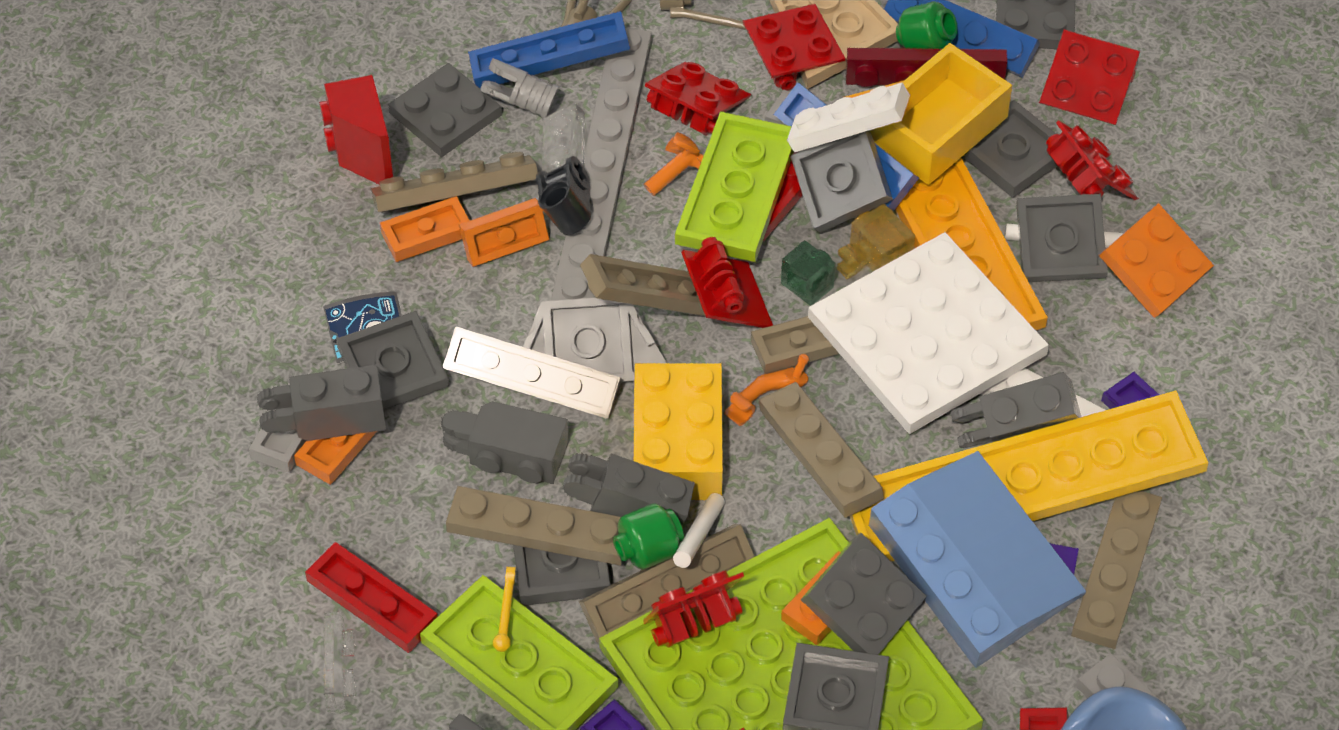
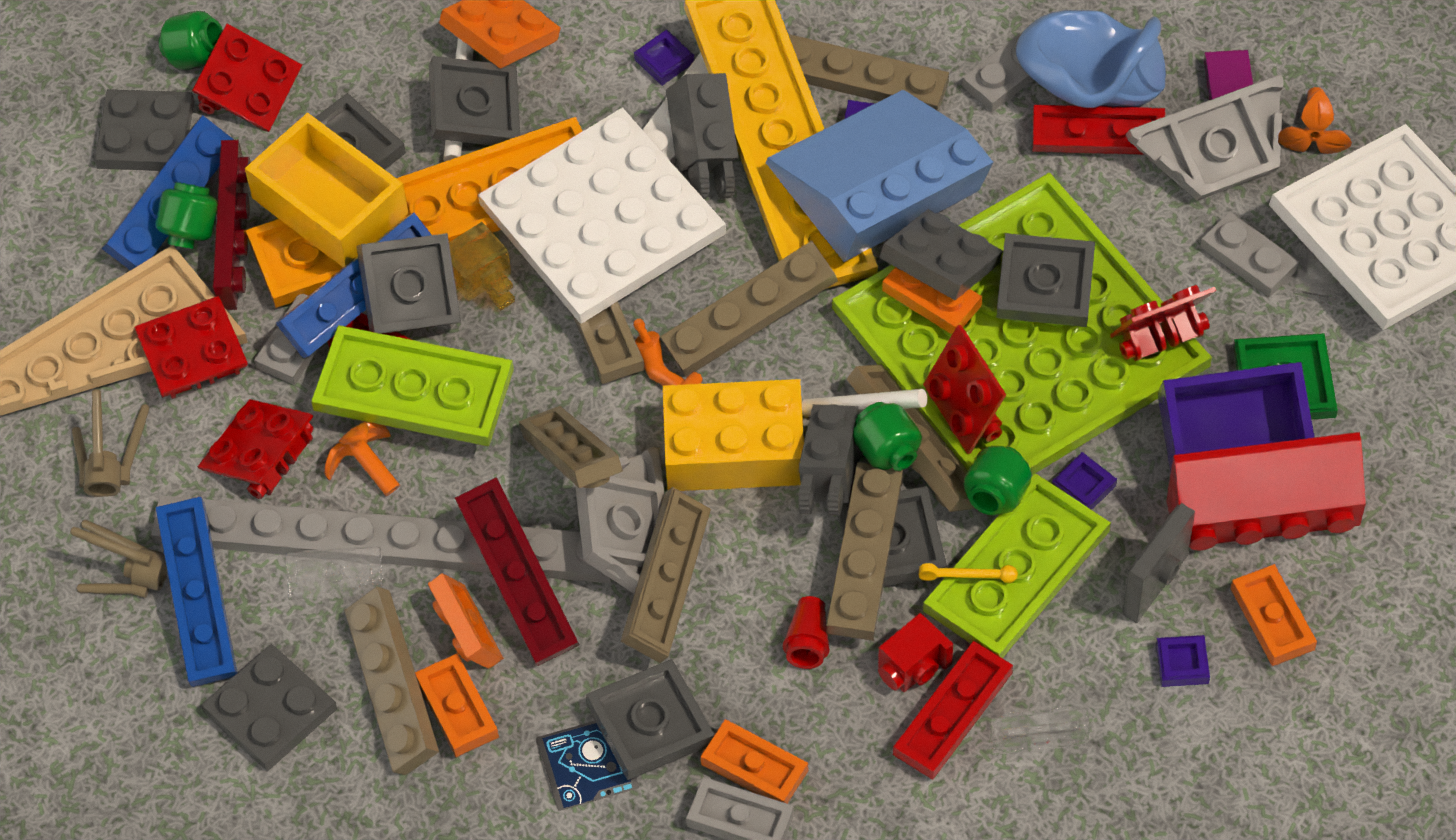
camera: 90 degrees left, 5 degrees up
(325, 404) = (733, 753): dark grey hinge -> none
(357, 128) = (330, 770): red slope -> none
(431, 565) = (914, 654): none -> red brick
(462, 475) = (807, 634): none -> red cone
(509, 440) = (751, 592): dark grey hinge -> none
(528, 91) = (255, 615): light grey hinge -> none
(542, 261) = (517, 571): none -> dark red plate
(565, 196) = (416, 555): black piece -> none
(597, 631) = (997, 480): none -> green head
(725, 286) = (563, 393): red hinge -> none
(808, 272) = (518, 326): clear green plate -> none
(848, 117) = (354, 257): white plate -> none
(1086, 162) = (358, 75): red hinge -> none
(1130, 29) = (189, 39): none -> green head

